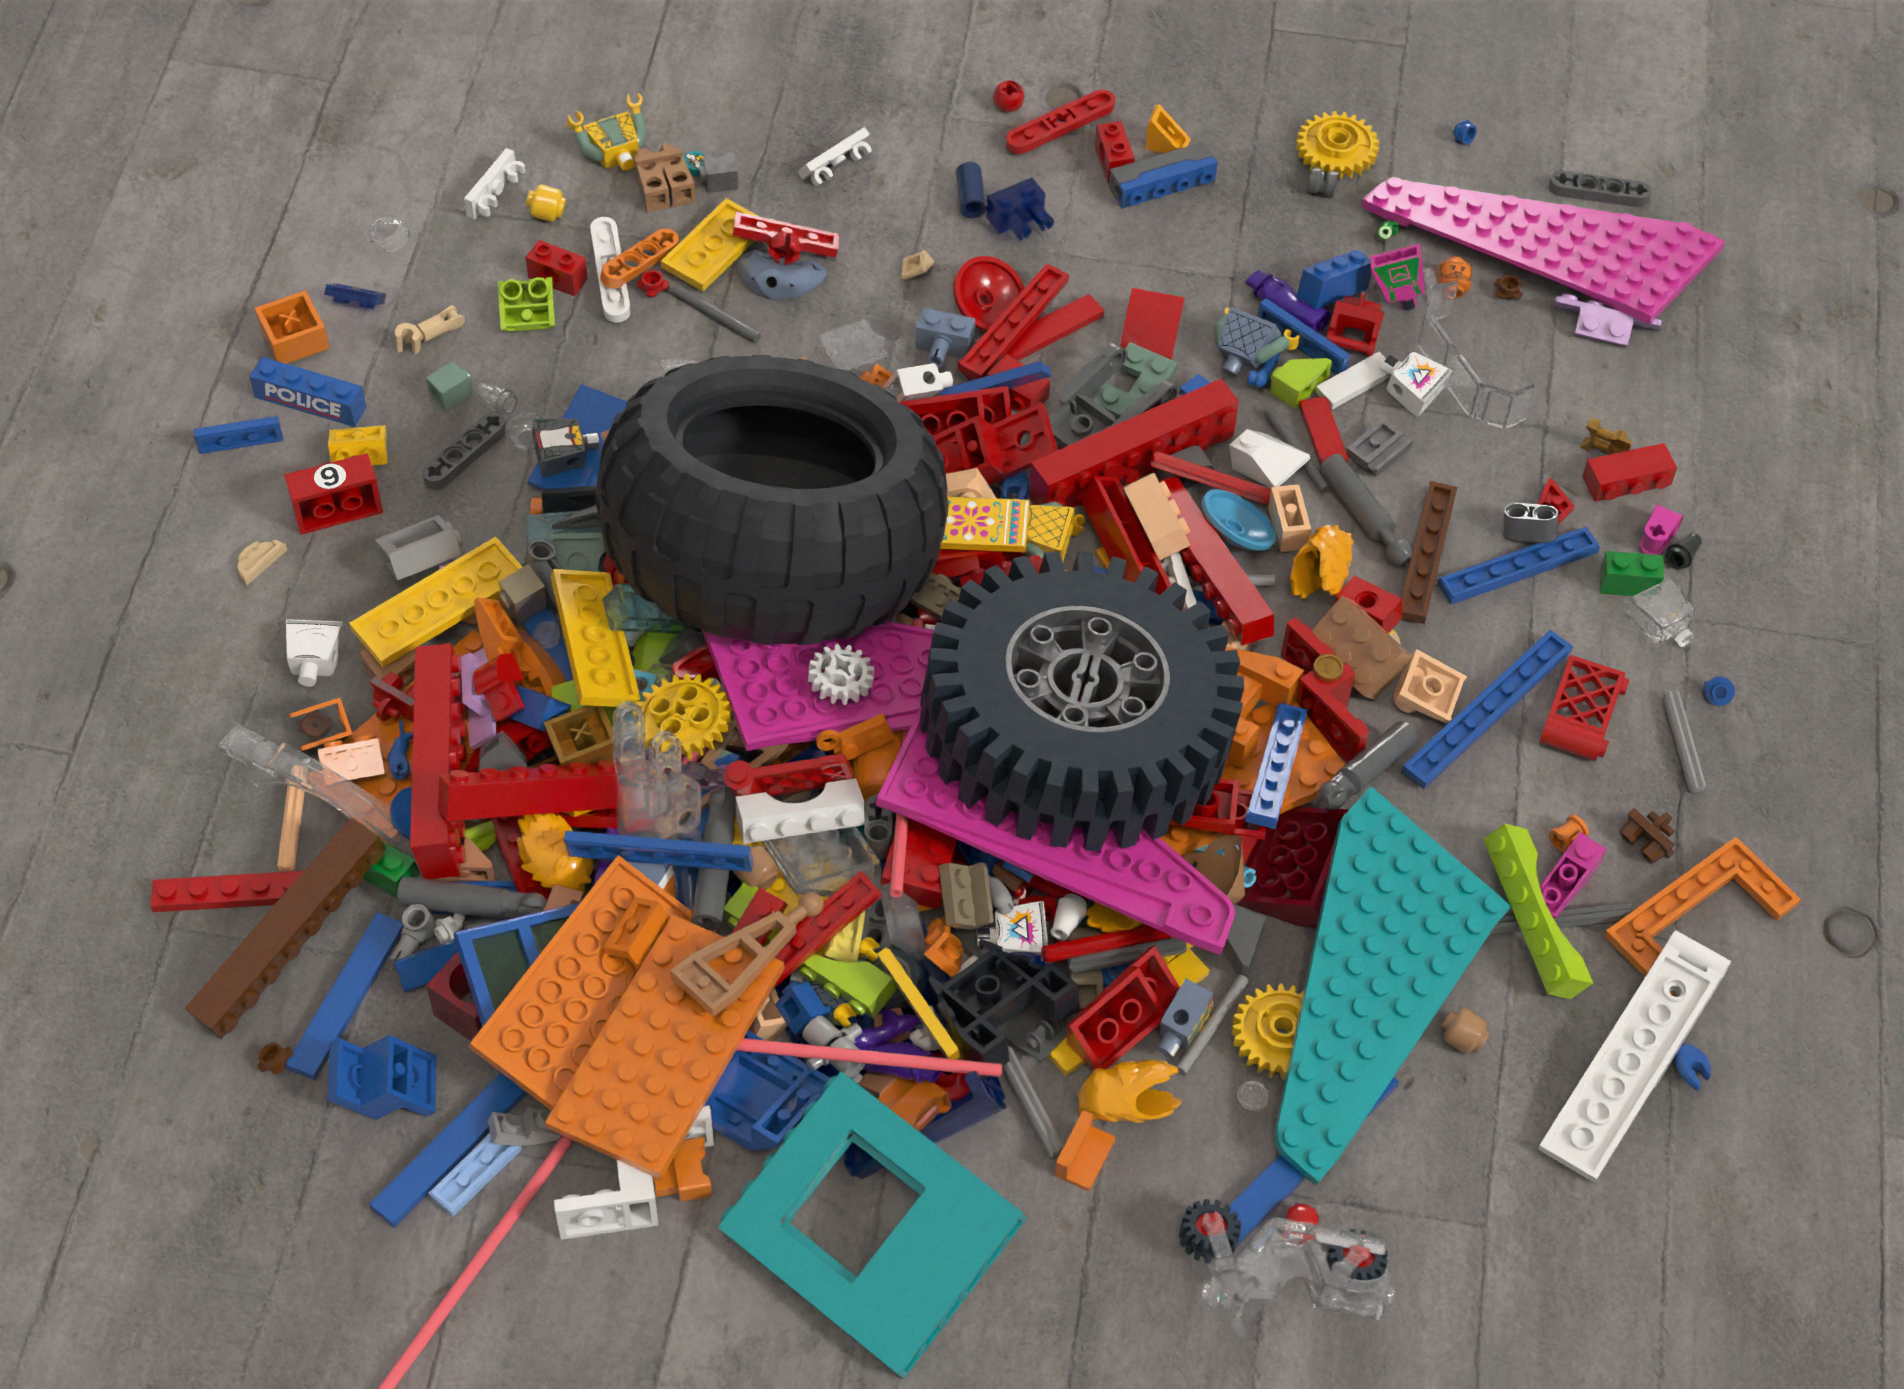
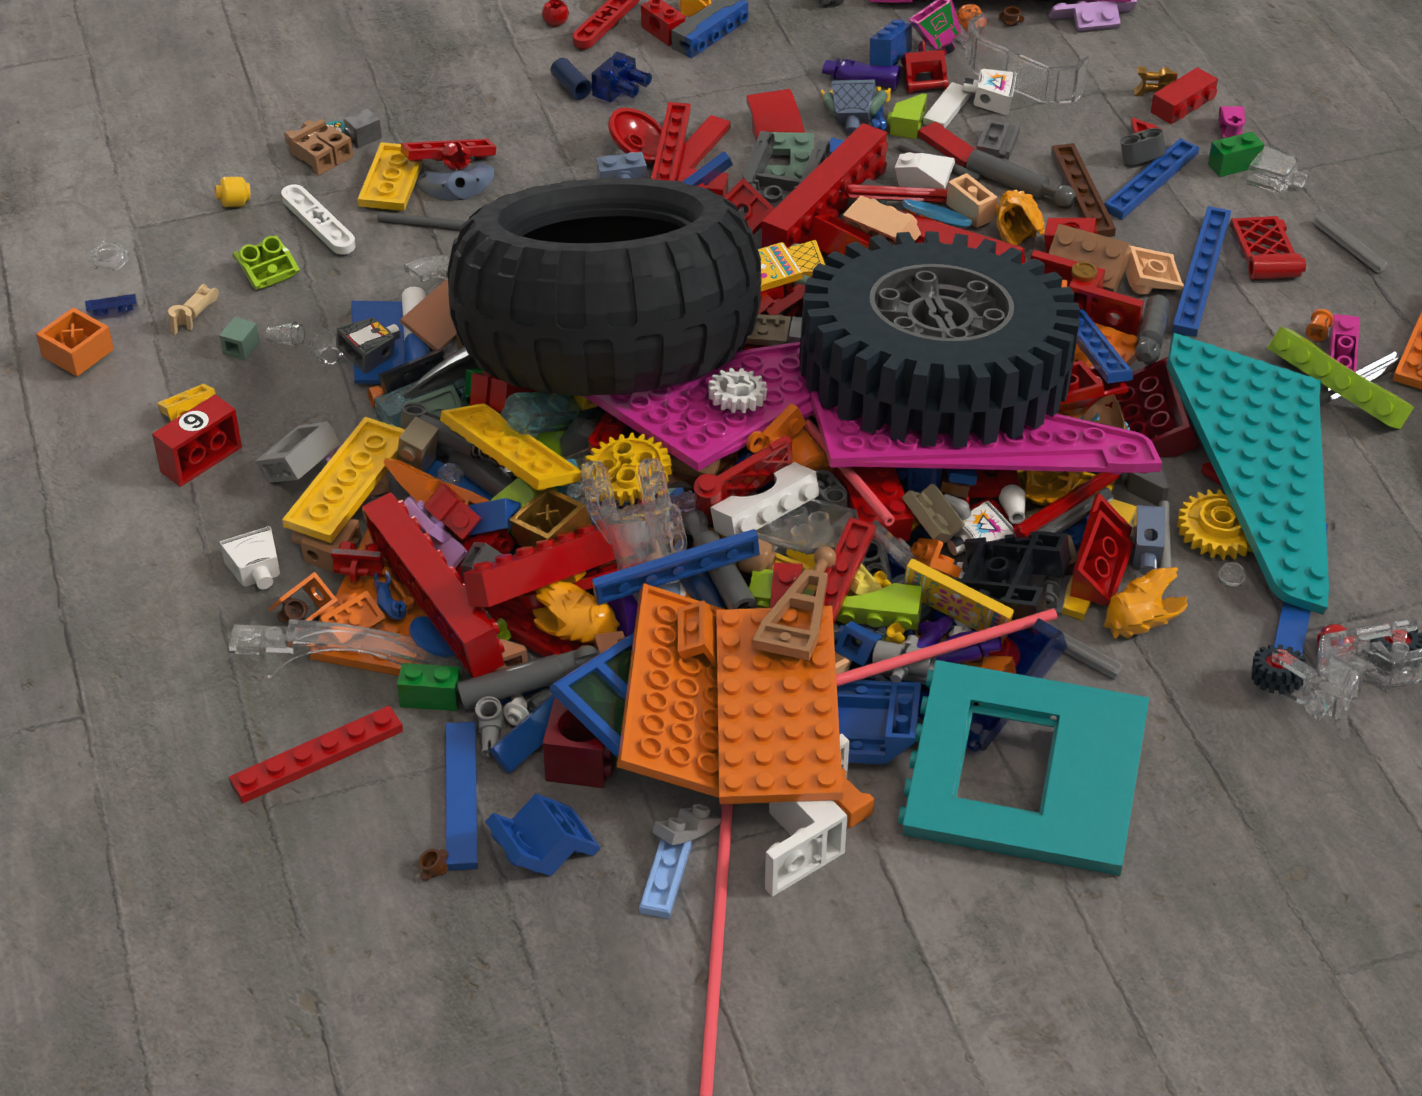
camera: 25 degrees left, 10 degrees down
(238, 434) = (77, 432): blue tile -> none
(257, 558) = (155, 514): tan tile -> none
(286, 928) = (382, 759): reddish brown brick -> none
(290, 829) = (323, 690): light nougat axle -> none
(308, 391) = (119, 381): blue brick -> none
(446, 1151) = (631, 870): blue tile -> none
(468, 453) = (278, 378): dark grey beam -> none
(492, 184) = (176, 201): white plate -> none
(565, 267) = (282, 224): red brick -> none
(612, 139) = (259, 132): torso -> none
(635, 254) = (339, 202): orange beam -> none
(652, 283) = (359, 217): red plate -> none
(835, 156) = (447, 90): white plate -> none
(916, 265) = (562, 140): tan slope -> none
(1084, 1153) = (1138, 663): orange panel -> none
(1309, 341) = (900, 89): blue tile -> none
(1387, 229) = (899, 9): arm -> none
(1465, 1030) = (1349, 472): medium nougat head -> none
(1658, 843) = (1375, 302): reddish brown hips -> none
(1683, 551) = (1259, 128): pearl dark grey cone -> none
(1719, 690) = (1348, 203): blue plate -> none

